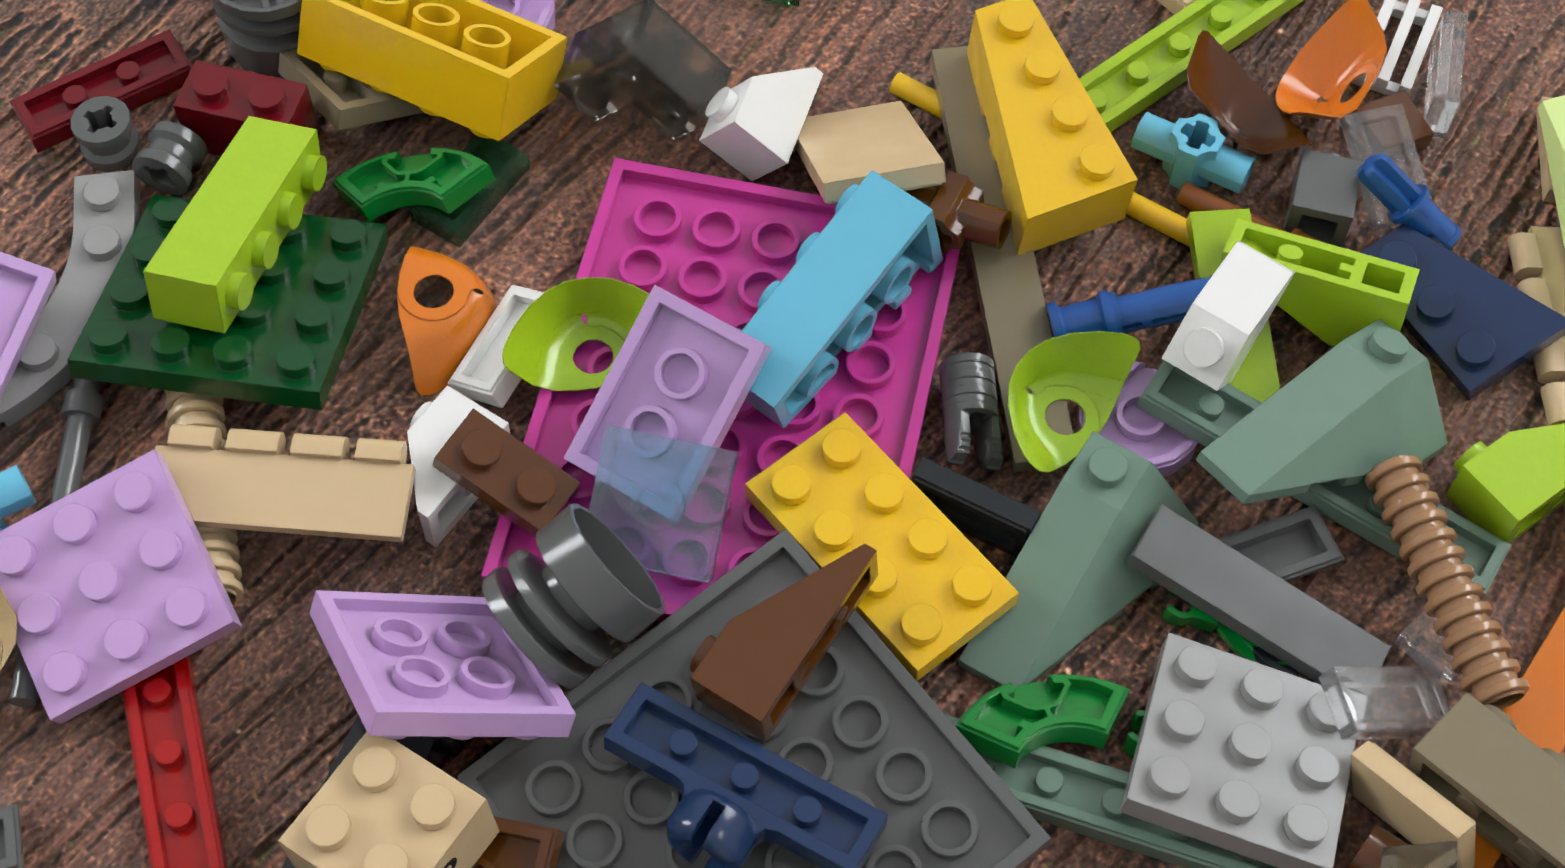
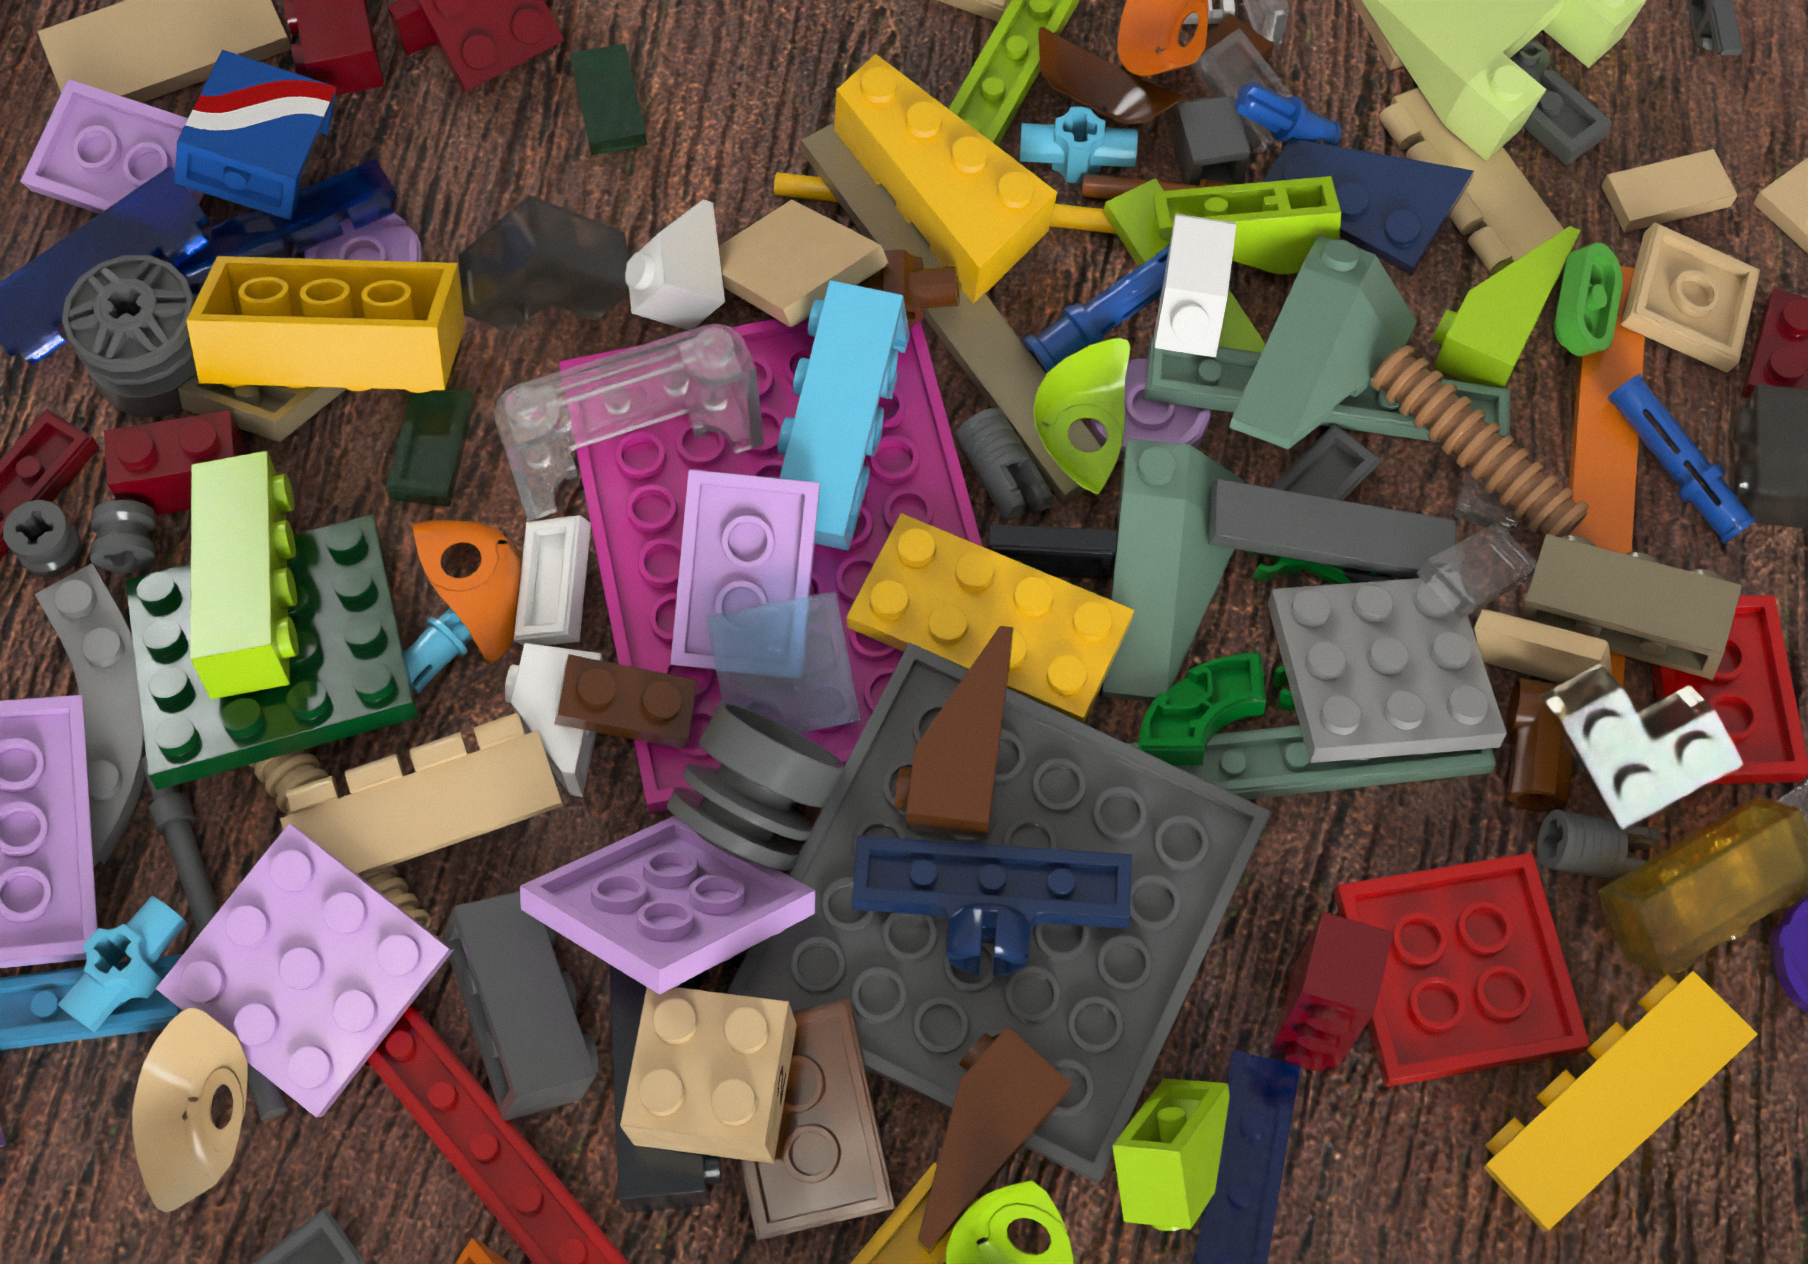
camera: 25 degrees left, 5 degrees up
(272, 706) = (519, 1006): none -> dark grey brick
(373, 362) = (436, 648): none -> medium azure axle
(435, 179) = (357, 470): green tile -> none
(553, 328) = (642, 511): lime piece -> none
(566, 195) = (688, 373): none -> clear windscreen

